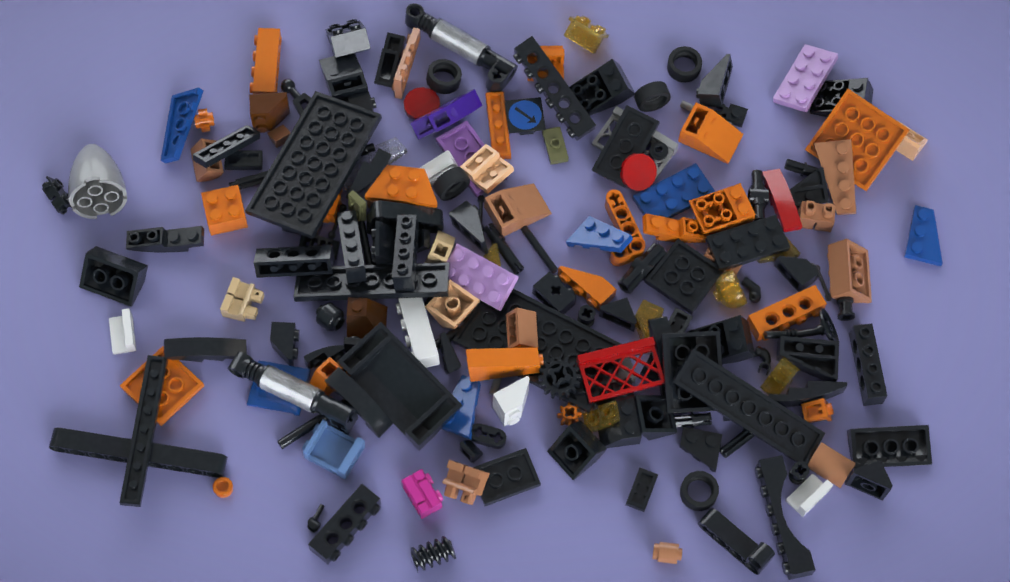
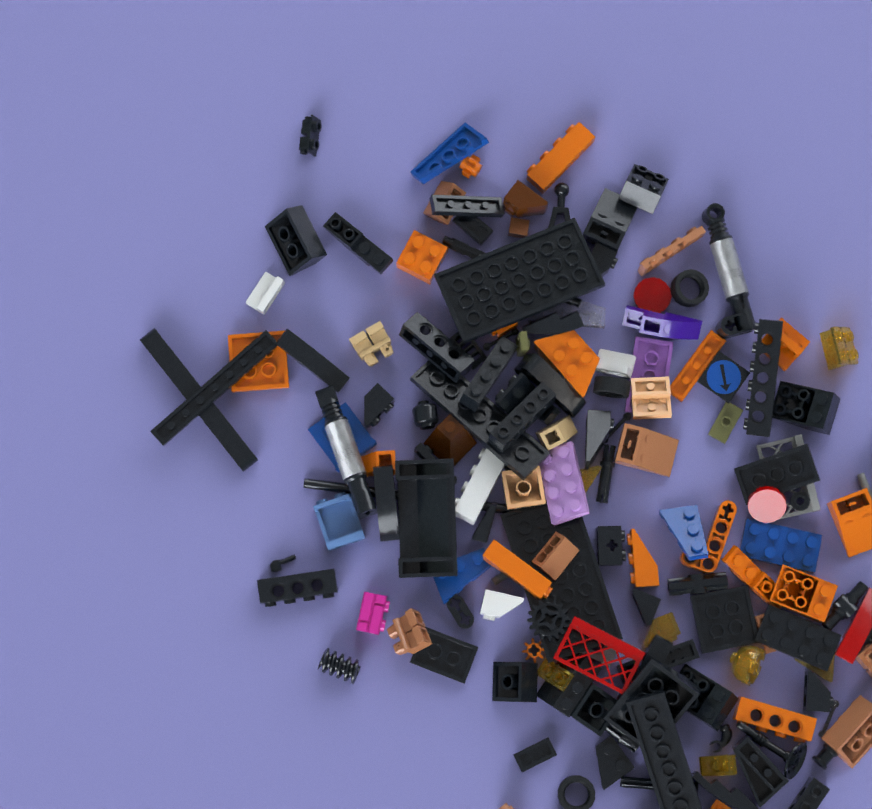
camera: 45 degrees right, 15 degrees up
(95, 184) = (344, 150): light grey cylinder -> none
(223, 487) = (237, 479): orange tile -> none
(318, 356) = (402, 447): black slope -> none
(365, 242) = (505, 376): black bar -> none
(390, 59) = (660, 236): black slope -> none
(470, 450) = (438, 611): black slope -> none
(539, 249) = (633, 498): black bar -> none
(588, 311) = (613, 588): black bush -> none
(652, 96) = (838, 450): black tyre -> none
(753, 289) = (768, 678): black arm -> none

